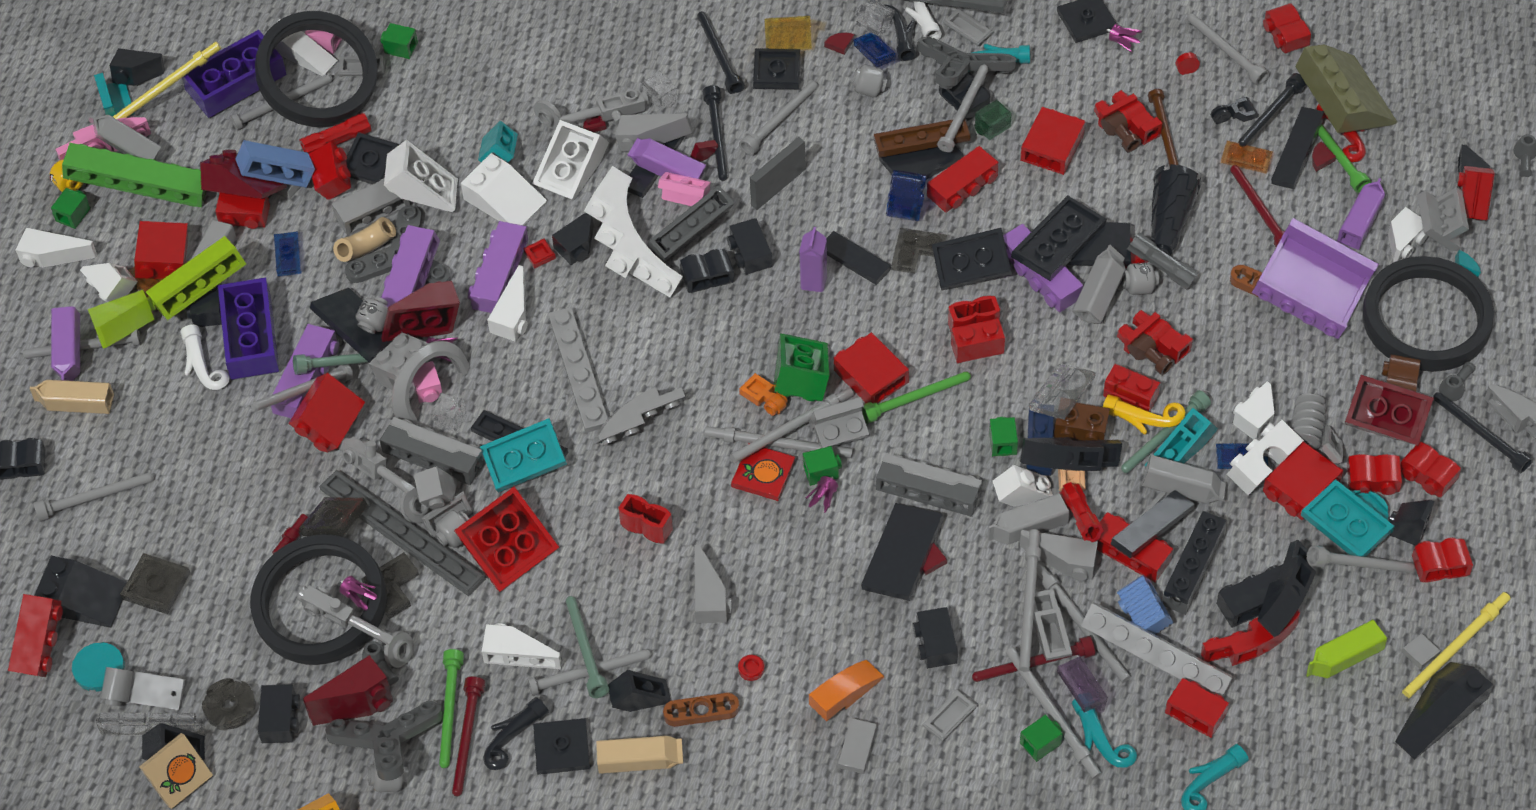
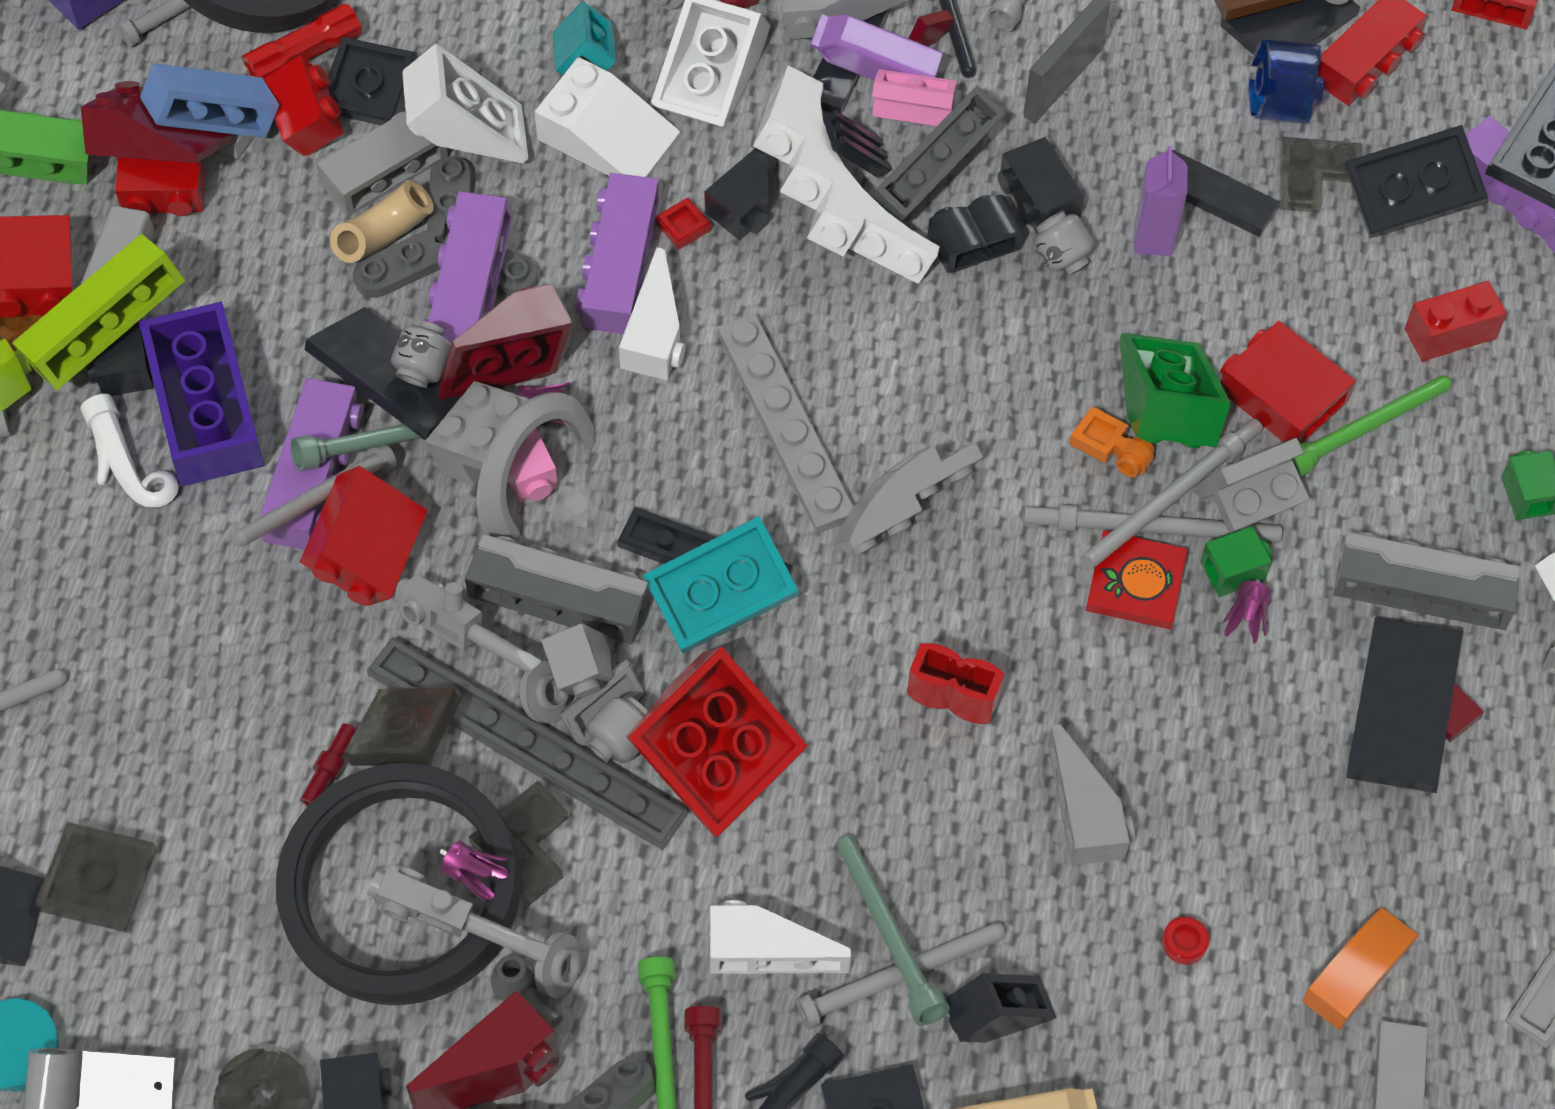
camera: 10 degrees left, 5 degrees up
(287, 254) = (249, 255): clear blue plate -> none
(644, 213) = (856, 144): none -> black tile
(692, 703) = (1149, 1029): dark orange beam -> none
(756, 279) = (1063, 242): none -> light grey head
(936, 637) = (1498, 858): black brick -> none
(969, 312) = (1440, 274): red brick -> none

